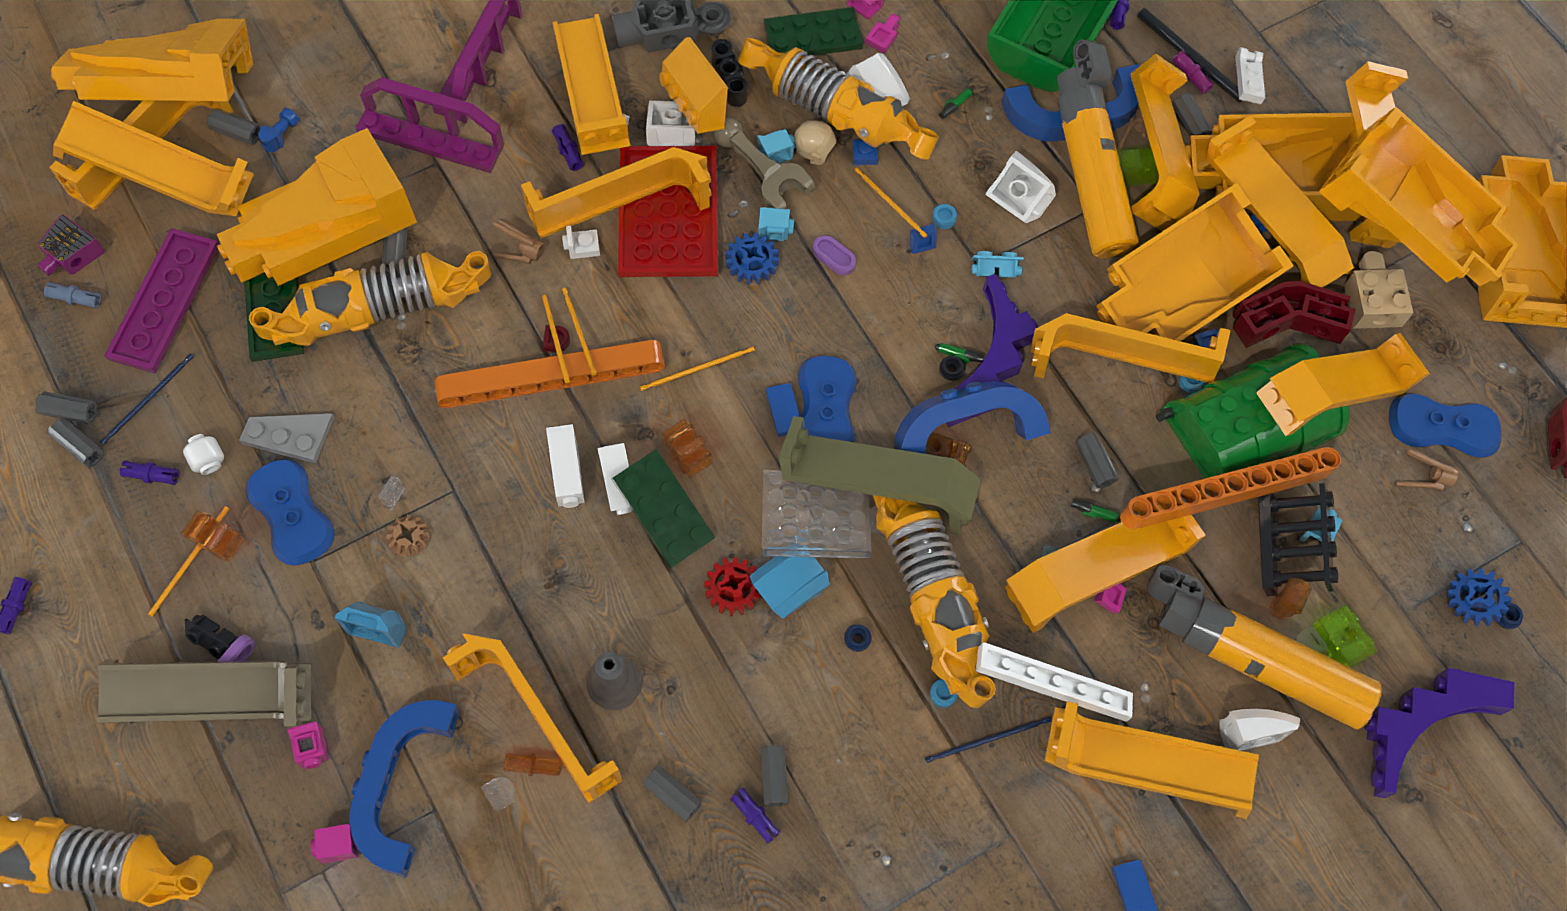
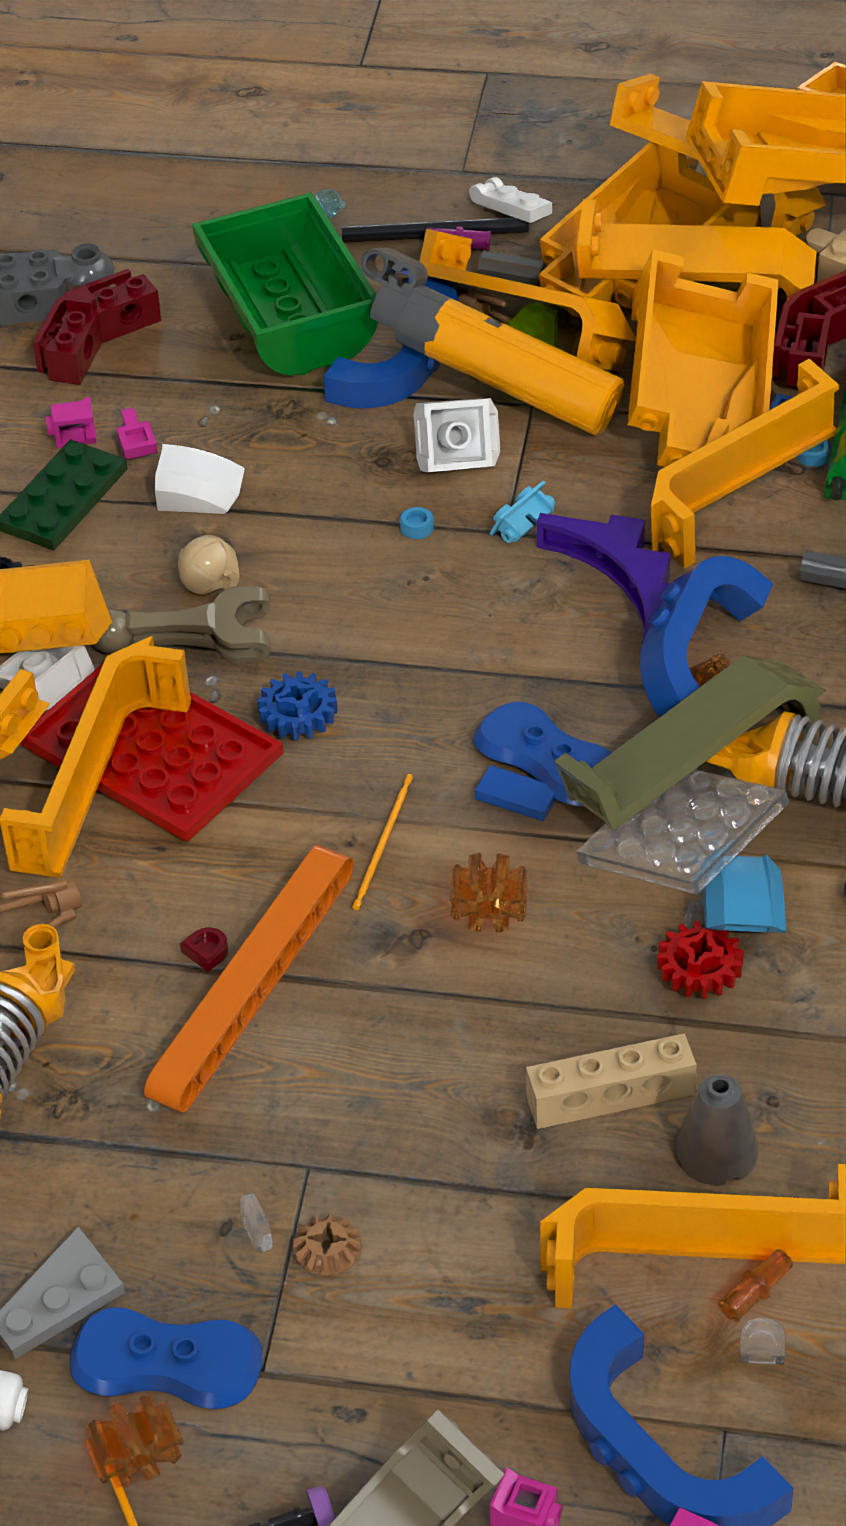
camera: 45 degrees left, 20 degrees down
(372, 623) = (426, 1334): dark azure slope -> none
(555, 338) = (215, 936): light orange piece -> none
(565, 465) = (396, 1020): white slope -> none
(579, 331) = (228, 909): light orange piece -> none
(581, 243) = (105, 849): white bracket -> none
(610, 599) = (610, 1081): none -> tan brick
(613, 461) = (456, 982): white slope -> none
(663, 508) = (544, 958): dark green plate -> none
(775, 224) = (275, 657): medium azure window -> none
(777, 146) = (176, 595): medium azure window -> none
(834, 255) = (365, 639): medium lavender tile -> none
(840, 99) = (180, 508): light orange piece -> none
(863, 153) = (263, 539): blue plate -> none
(890, 202) = (356, 548): light orange piece -> none
(919, 243) = (429, 550): blue plate -> none
(953, 103) = (286, 434): piece -> none
(956, 363) = (610, 622): black plate -> none
(964, 354) = (601, 606): piece -> none

